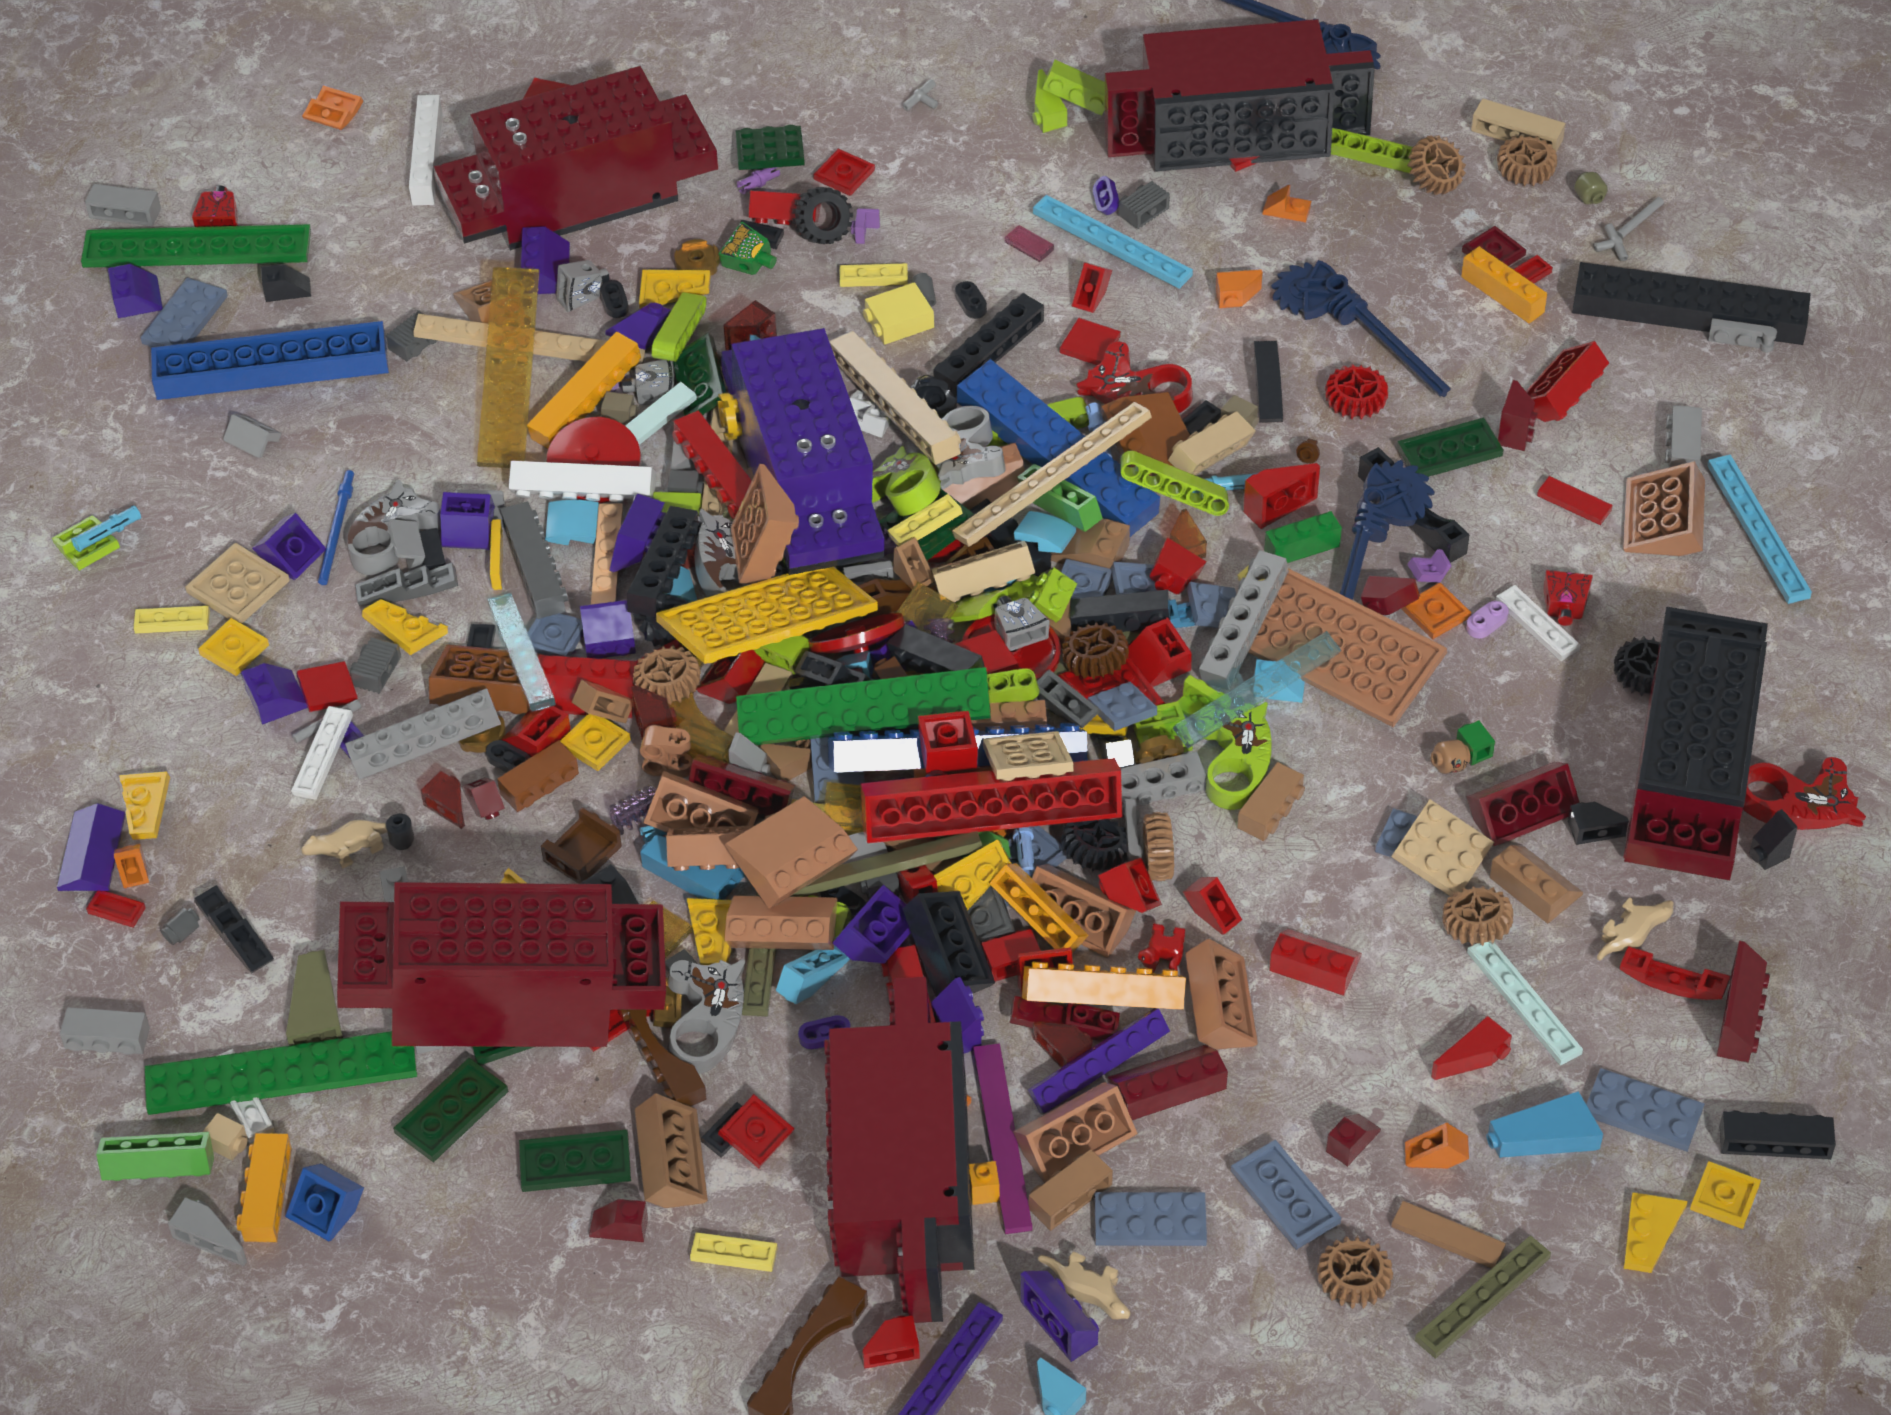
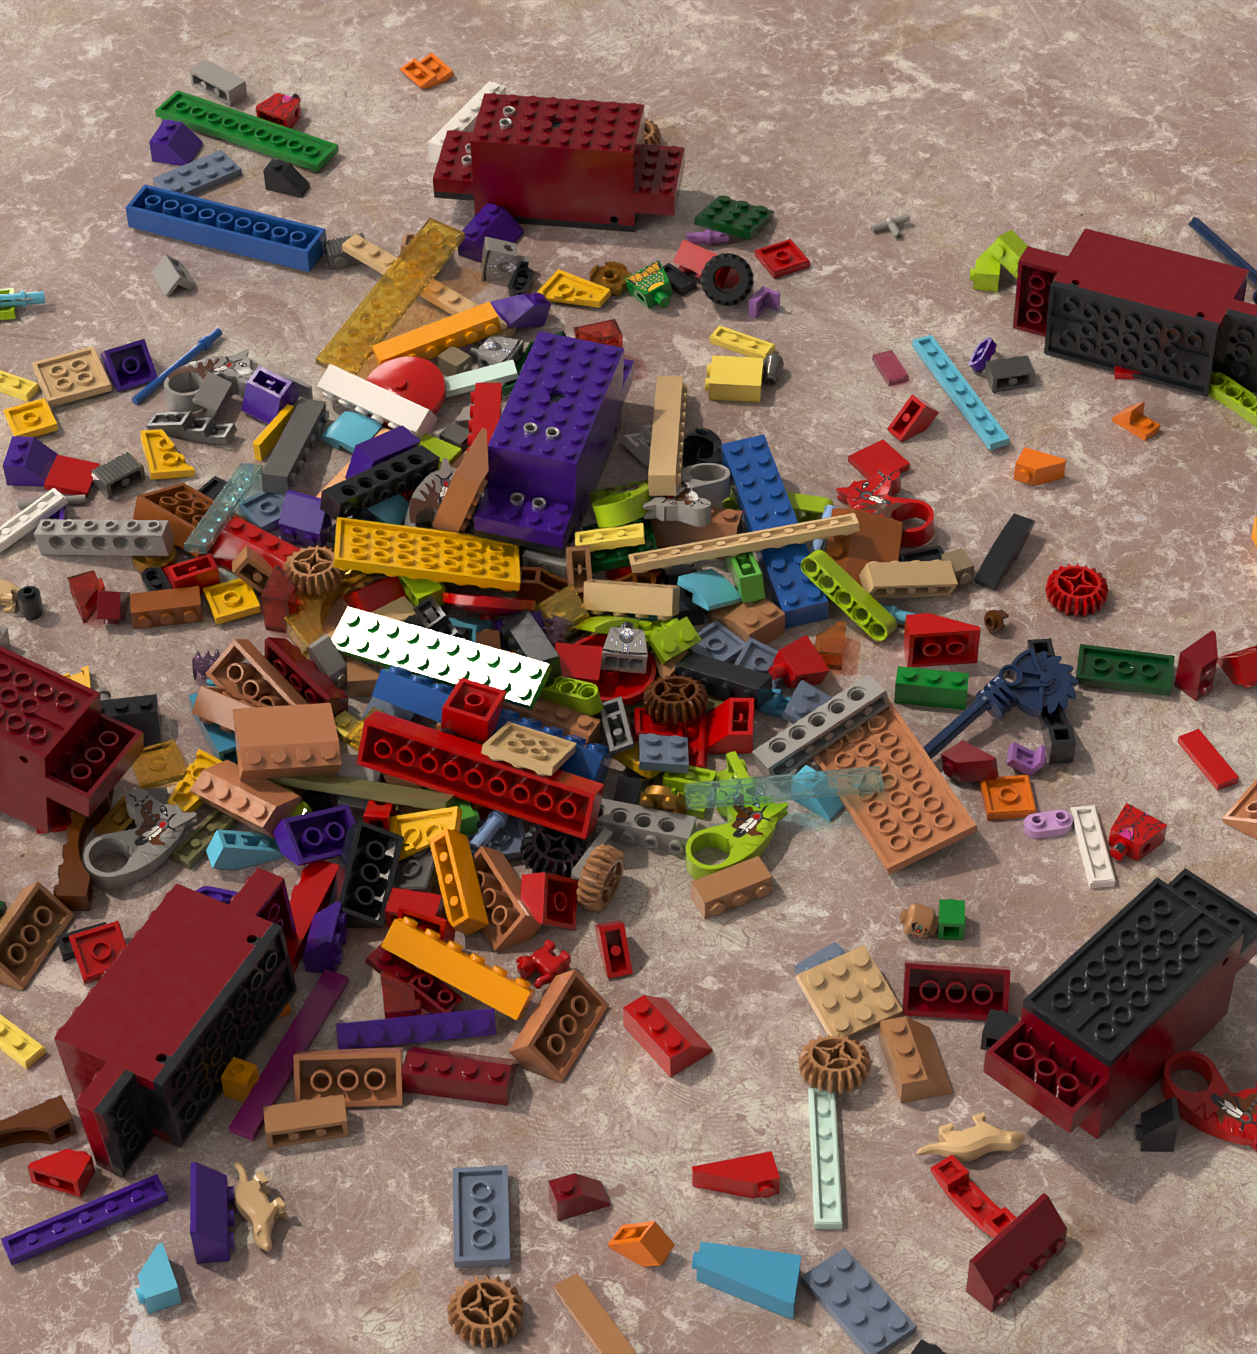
camera: 30 degrees right, 5 degrees down
(432, 548) = (230, 409): black tile -> none
(582, 847) = (158, 675): reddish brown panel -> none
(663, 753) = (264, 624): nougat piece -> none
(679, 327) = (548, 319): lime beam -> none
(970, 299) = (806, 392): black plate -> none
(991, 340) = (799, 427): black brick -> none
(1150, 1219) = (355, 1179): sand blue plate -> none
(1323, 290) = (1113, 499): dark blue piece -> none

